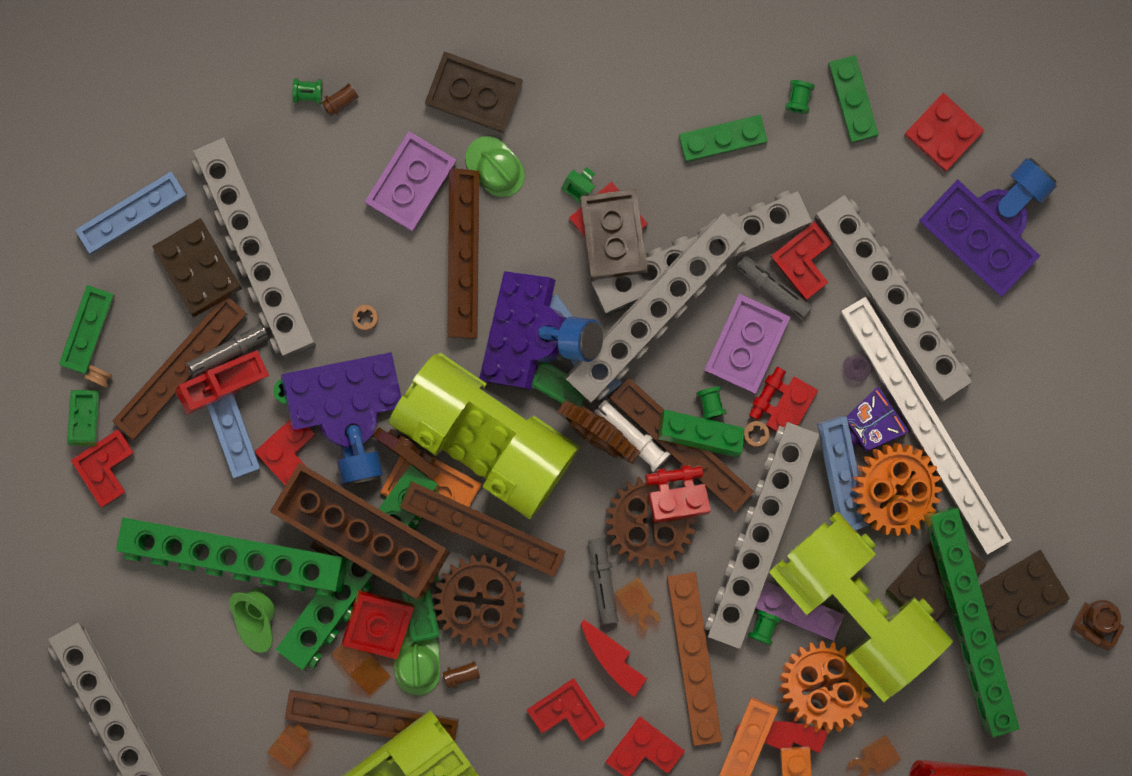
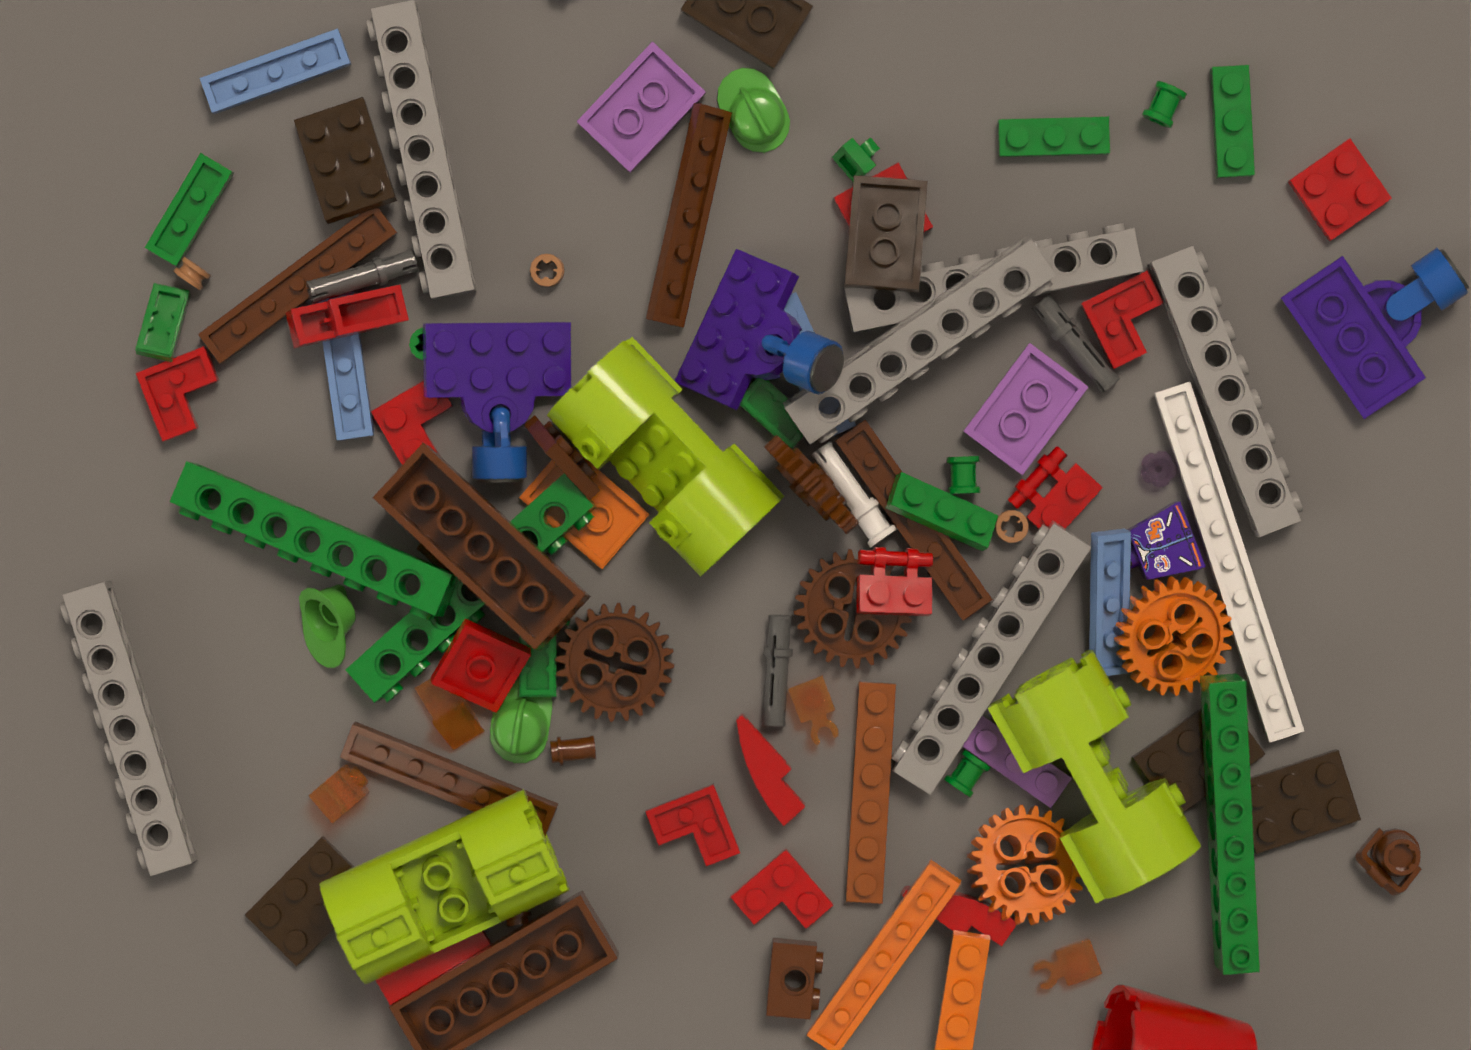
camera: 20 degrees right, 5 degrees up
(482, 528) = (637, 573): reddish brown plate -> none

